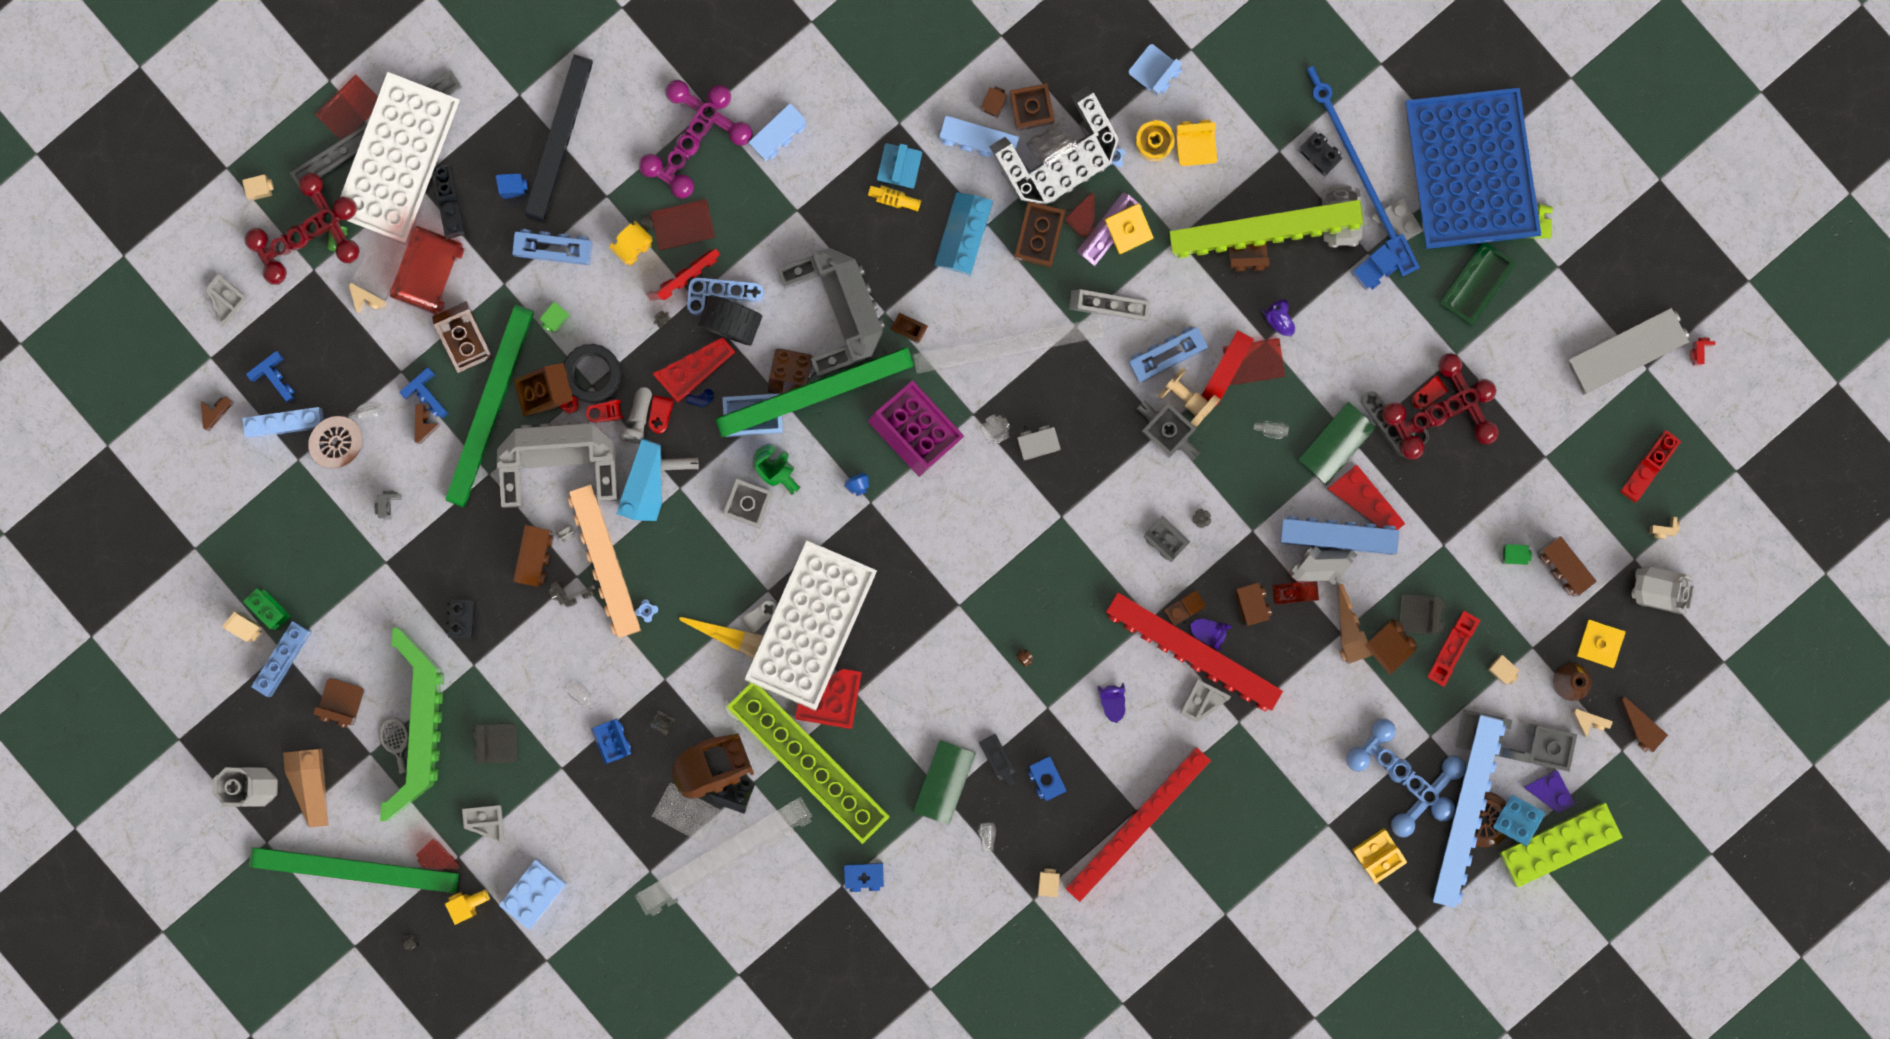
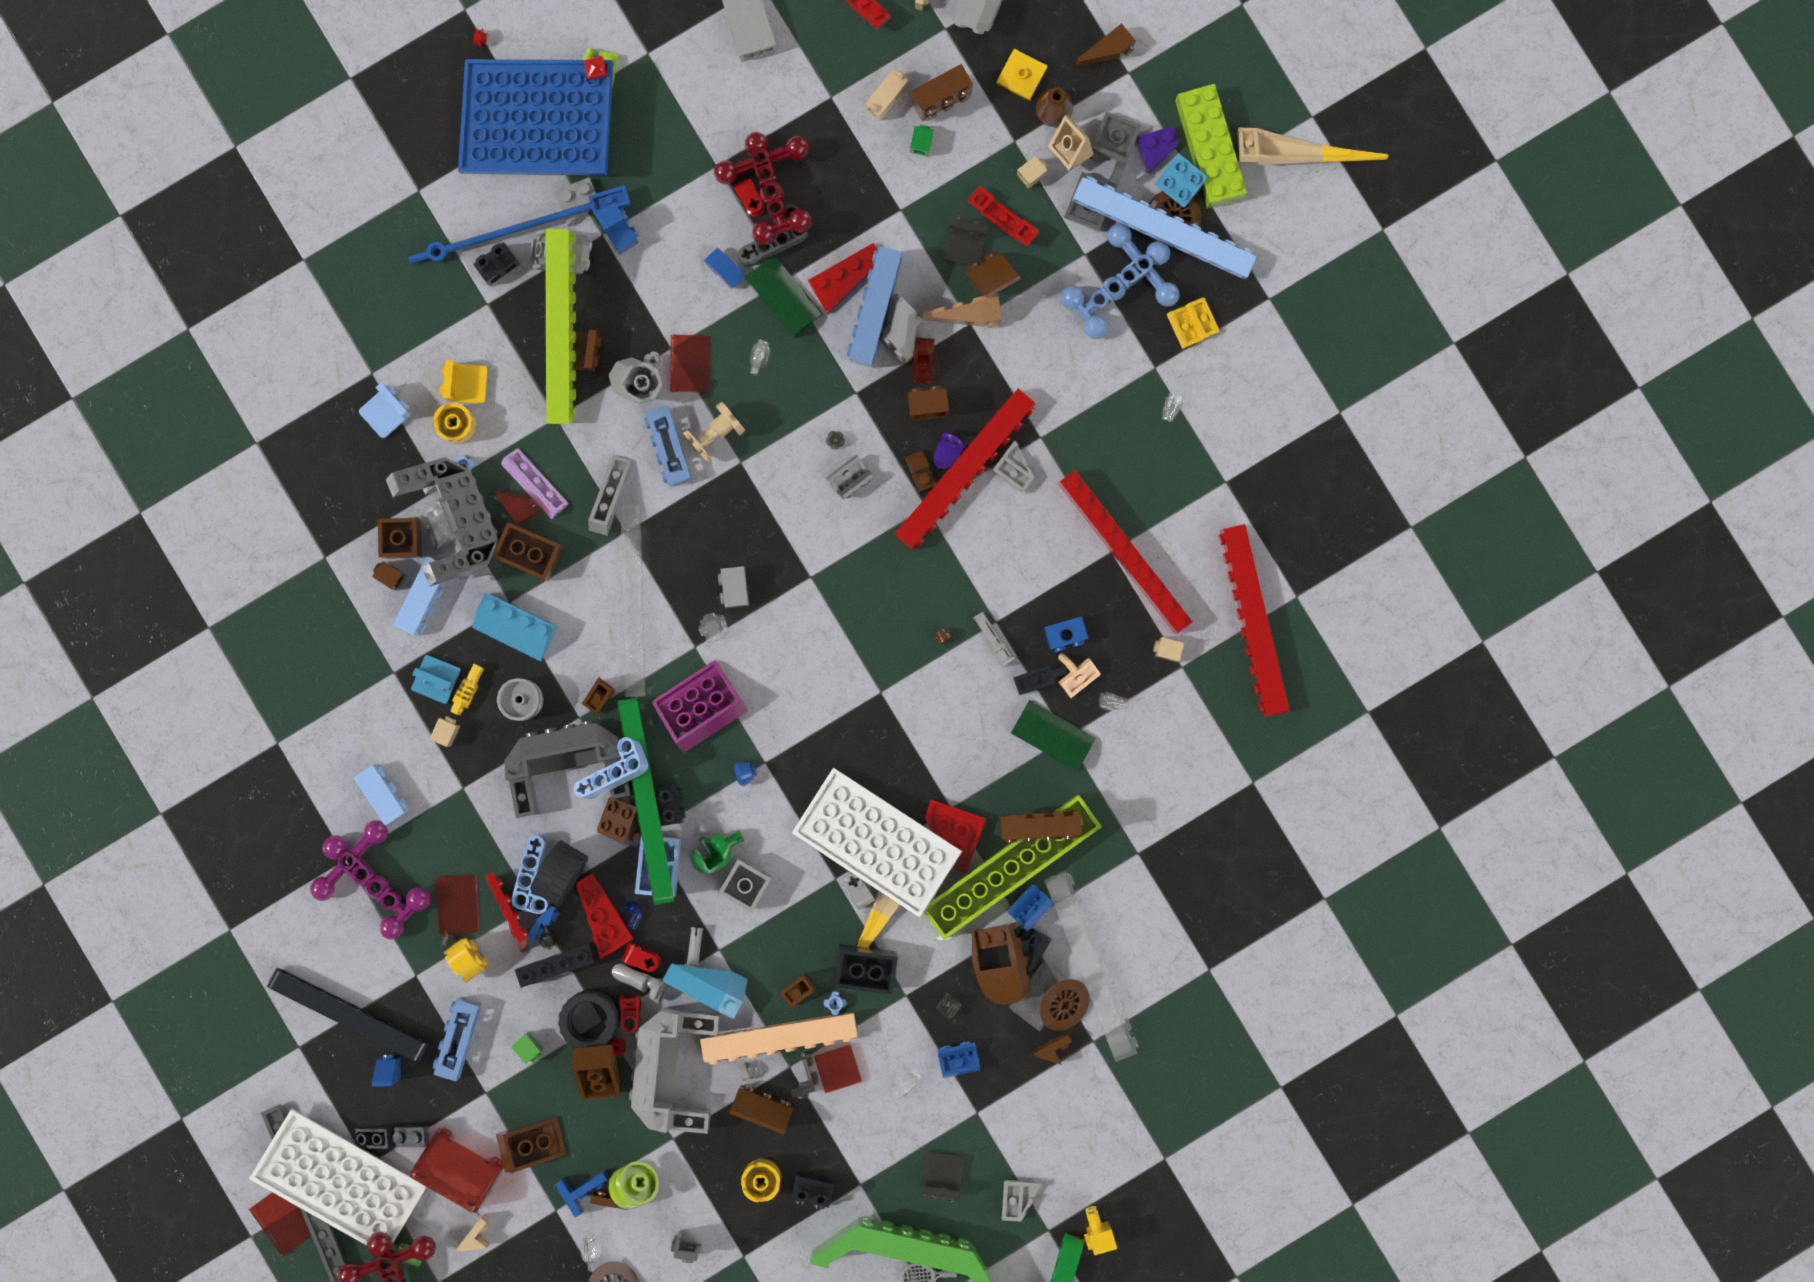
camera: 80 degrees left, 0 degrees up
(436, 857) = (1045, 1253): clear red slope -> none
(439, 444) = (633, 1185): none -> lime wheel
(453, 570) = (761, 1191): none -> yellow brick
(489, 406) = (604, 1127): green beam -> none
(533, 894) = (1097, 1162): light blue brick -> none
(583, 624) = (837, 1068): none -> clear red tile
(633, 827) = (1048, 1050): none -> reddish brown slope
(640, 331) = (556, 965): none -> black brick
(653, 572) = (797, 990): none -> reddish brown slope
(684, 315) = (546, 918): none -> blue slope
(685, 634) = (865, 969): none -> black brick
(698, 844) = (1072, 993): none -> reddish brown piece
(771, 787) = (1030, 907): none -> blue bracket
(813, 416) = (669, 805): none -> black brick
(836, 353) = (610, 772): none -> light blue beam
(850, 184) = (445, 731): none -> tan brick
(852, 874) = (1128, 820): blue brick -> none
(854, 783) = (1040, 825): none -> reddish brown wedge
(895, 263) = (530, 705): none -> light grey wheel
(1006, 798) = (1079, 676): none -> light nougat plate
(1022, 715) = (999, 647): none -> light grey pin
(1091, 964) = (1254, 620): none -> red brick
(1113, 702) = (1001, 556): dark purple piece -> none
(1128, 228) = (537, 463): yellow plate -> none
(1181, 430) = (745, 445): dark grey brick -> none
(1226, 312) = (636, 380): none -> light grey brick
(1228, 366) = (690, 388): red slope -> none
(1250, 330) = (654, 355): none -> light grey plate
(1279, 319) = (652, 330): dark purple piece -> none
(1292, 848) = (1171, 407): none -> clear cone
(1354, 380) = (724, 267): none -> blue slope
(1478, 283) = (650, 132): dark green slope -> none
(1529, 220) = (595, 68): none -> red tile
(1536, 703) = (1070, 144): none -> tan slope
(1544, 98) = (480, 37): none -> red plate
(1557, 512) = (887, 94): none -> tan brick
(1568, 908) = (1272, 148): none -> tan plate
(1585, 720) = (1094, 101): tan slope -> none

